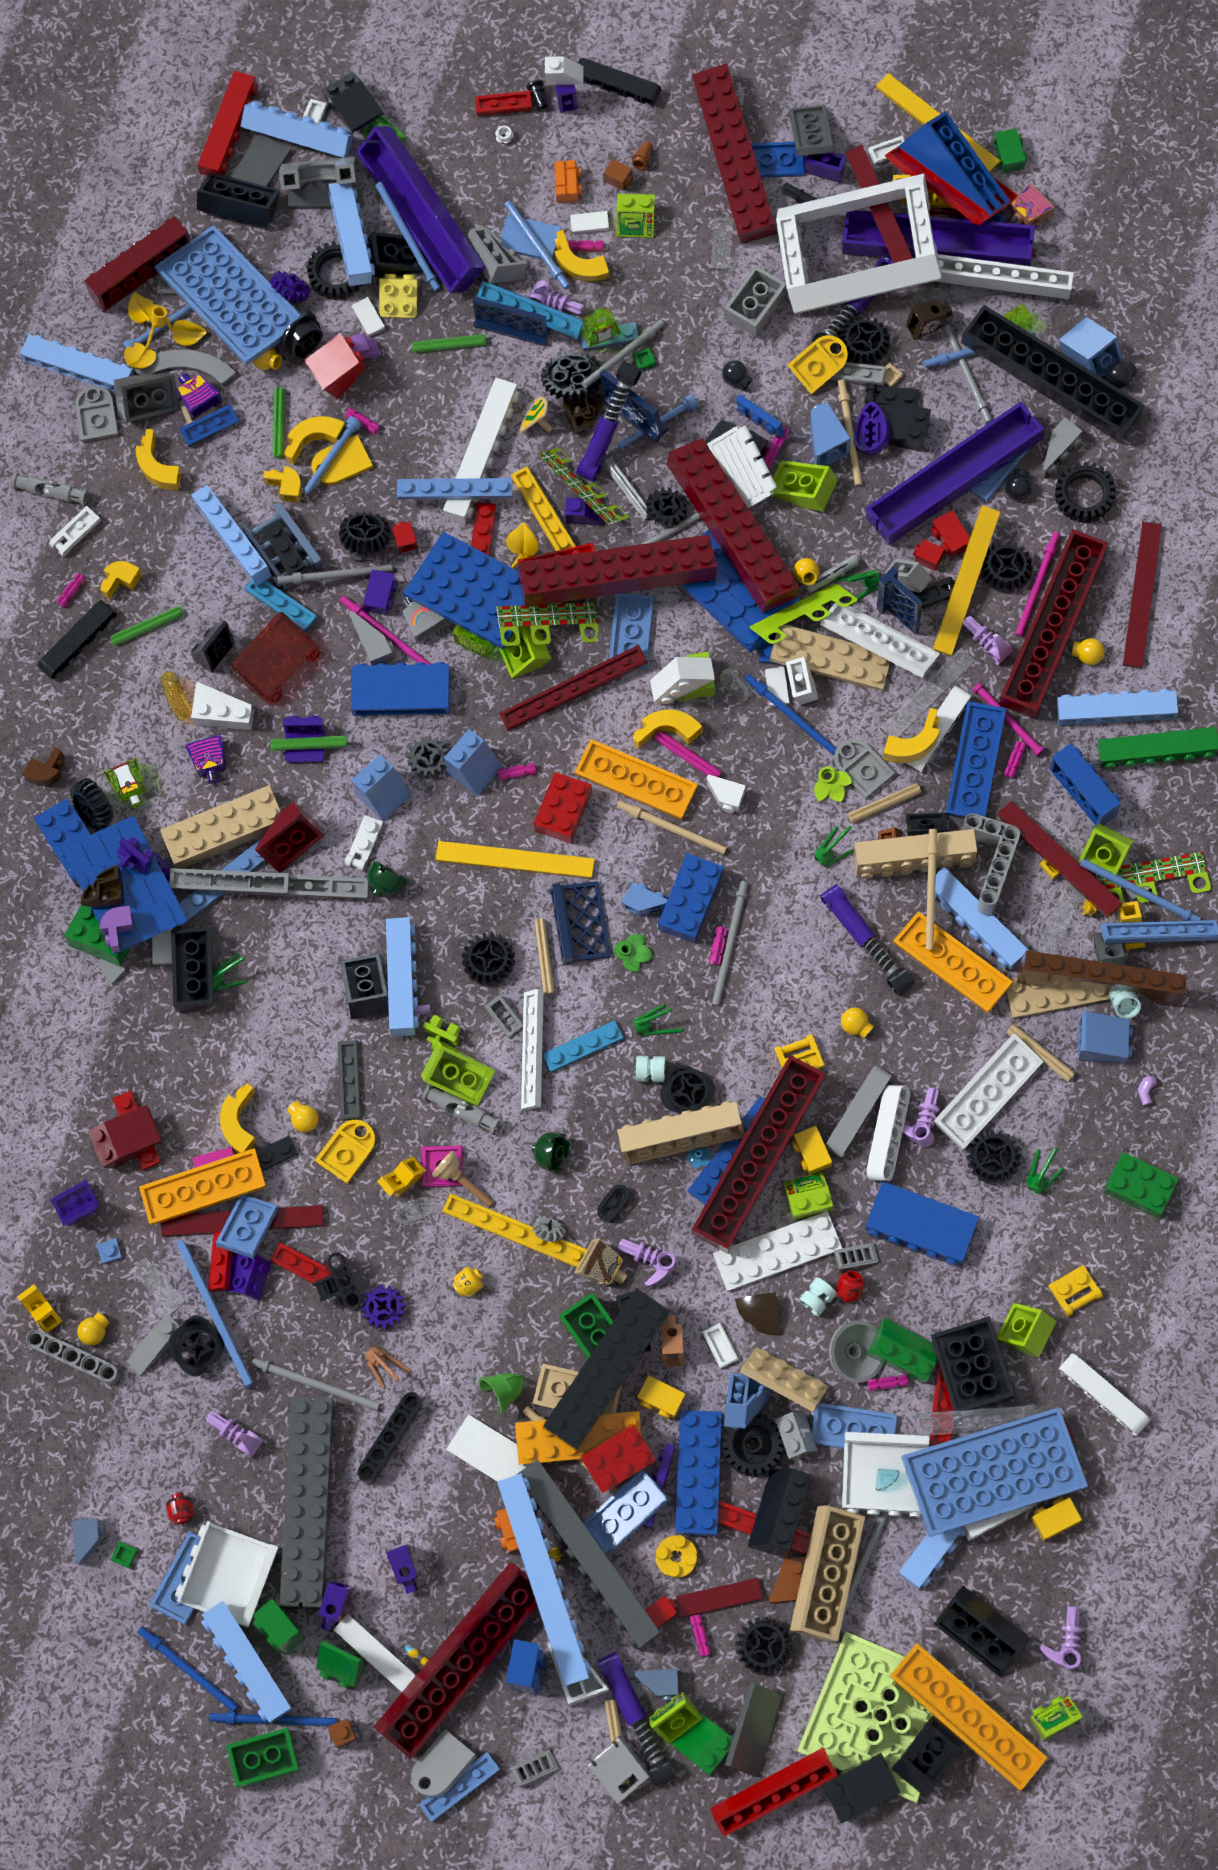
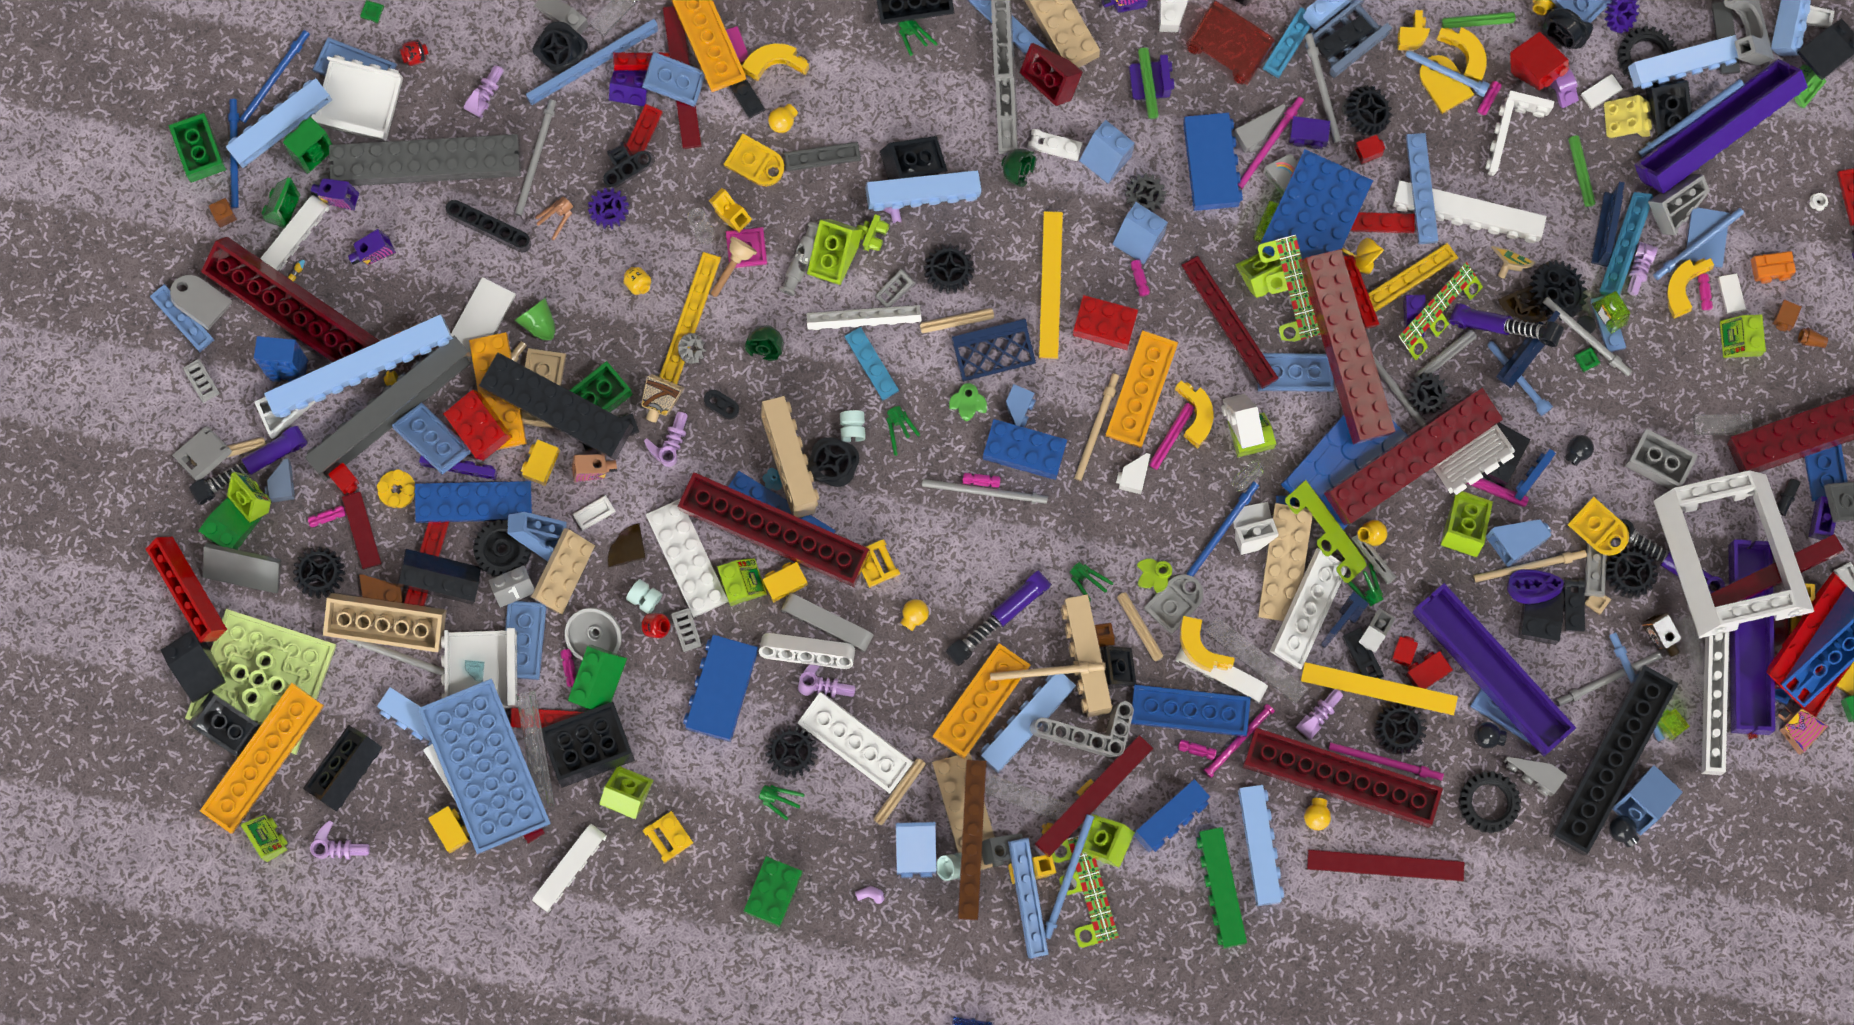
camera: 75 degrees right, 5 degrees up
(395, 408) = (1521, 103): none -> white bracket
(606, 354) = (1587, 323): none -> black tile

